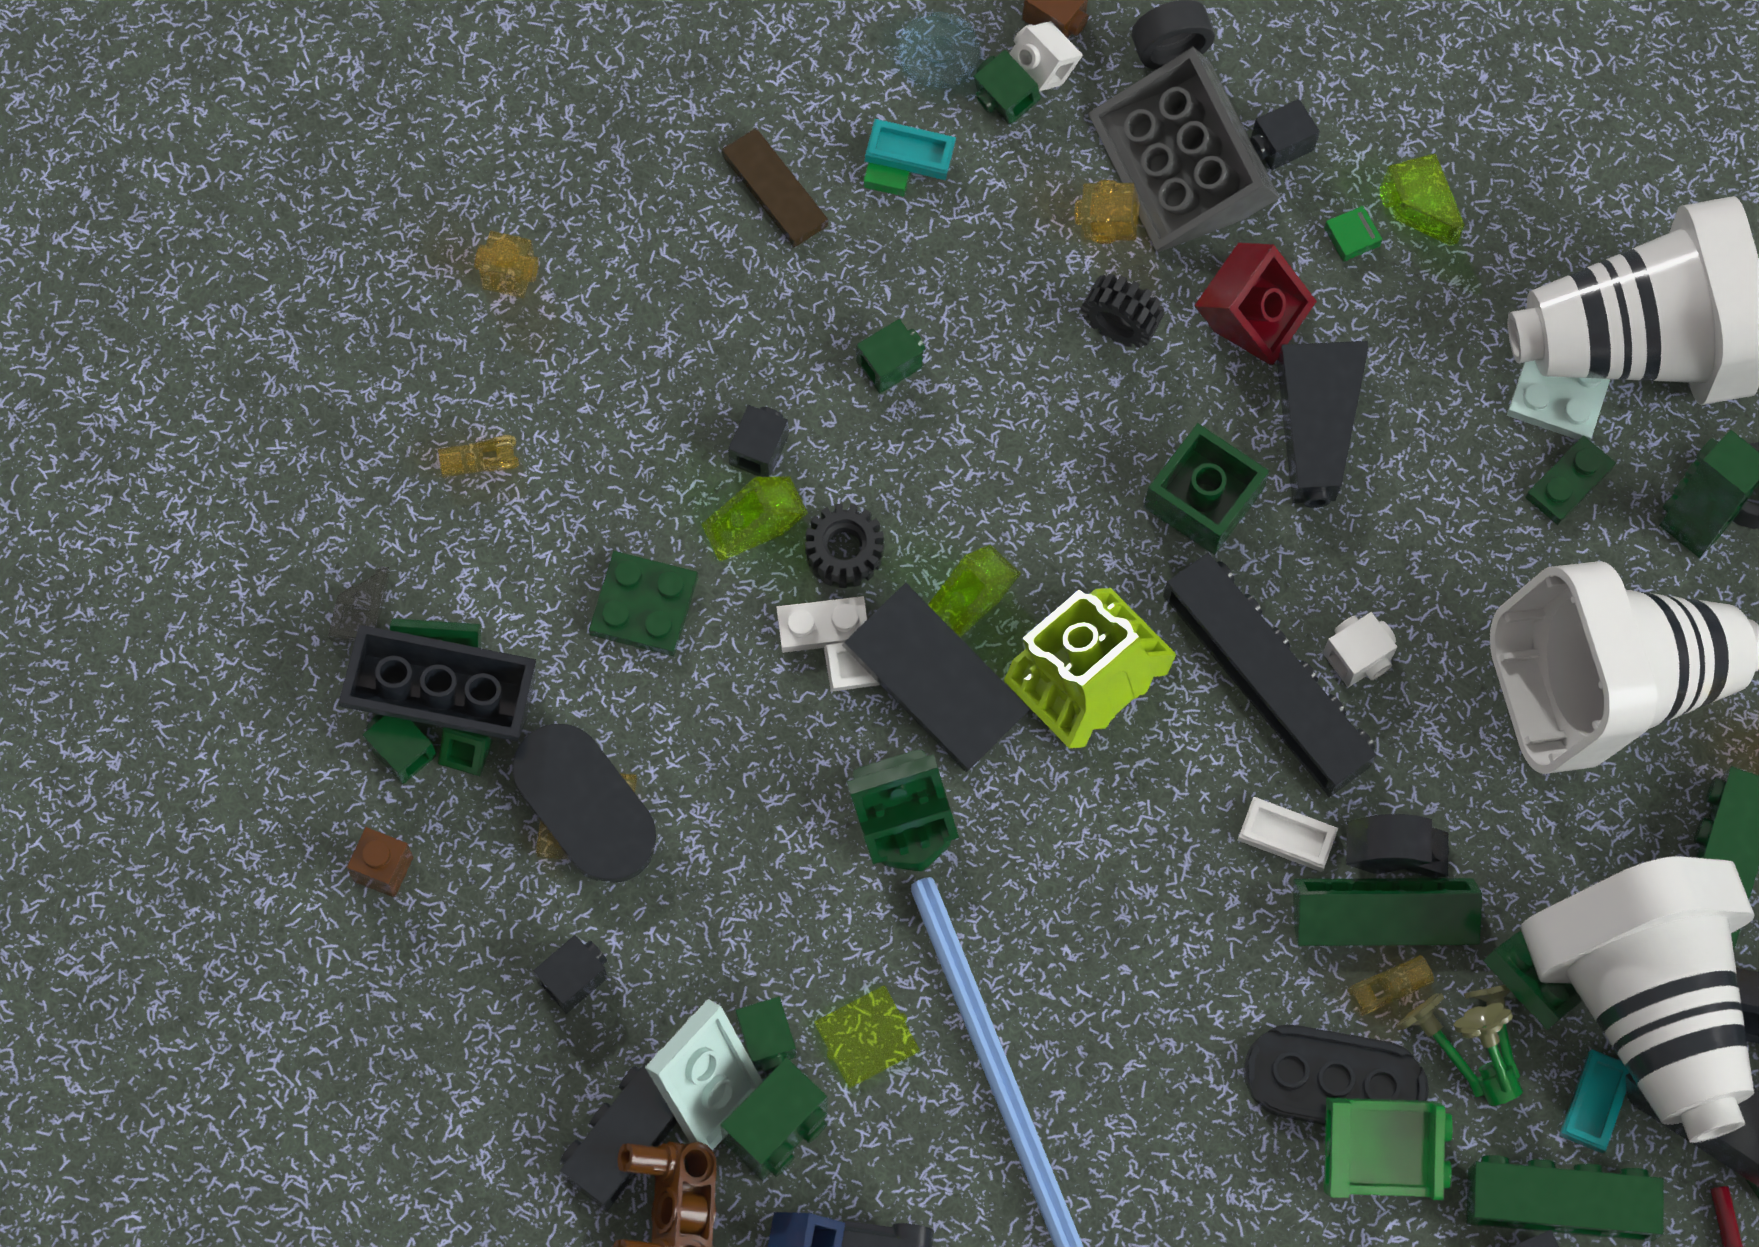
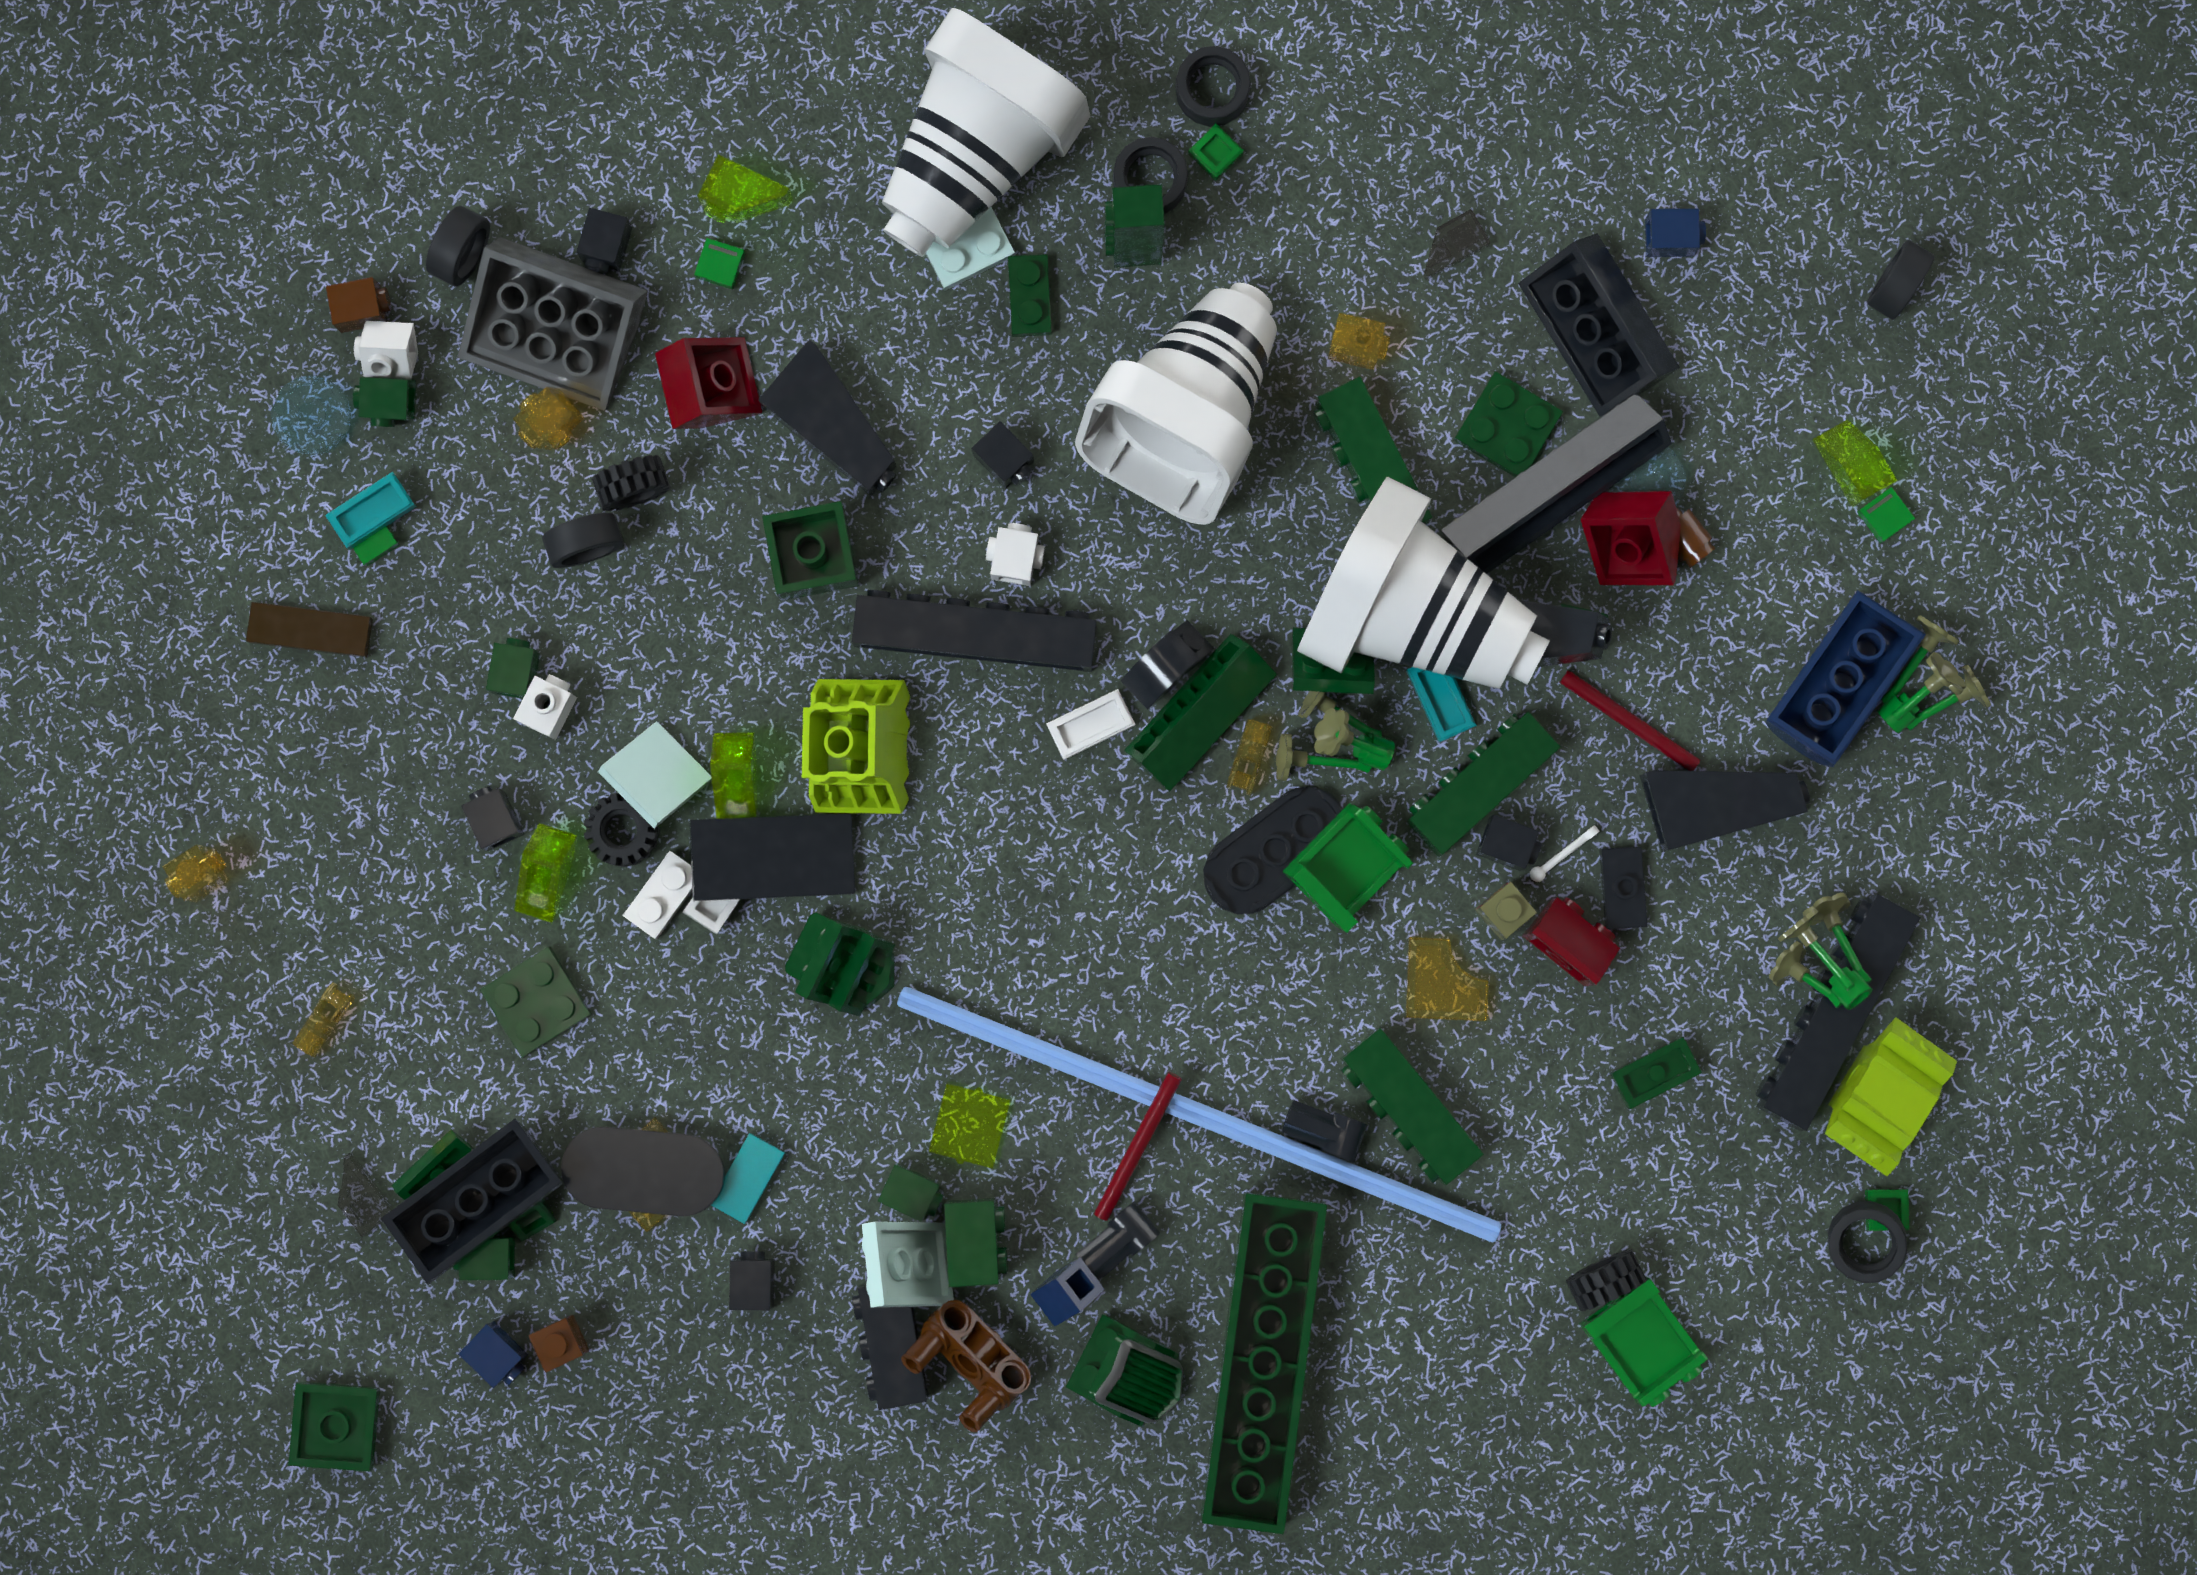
camera: 45 degrees left, 15 degrees up
(151, 748) = (334, 1426): none -> dark green plate
(323, 821) = (494, 1355): none -> dark blue brick
(655, 895) = (748, 1178): none -> teal tile
(886, 401) = (548, 720): none -> white brick
(913, 529) = (655, 774): none -> light aqua tile
(983, 1189) = (1137, 1146): none -> dark red bar
(1043, 313) = (582, 540): none -> black tyre
(1429, 569) = (1004, 456): none -> black brick

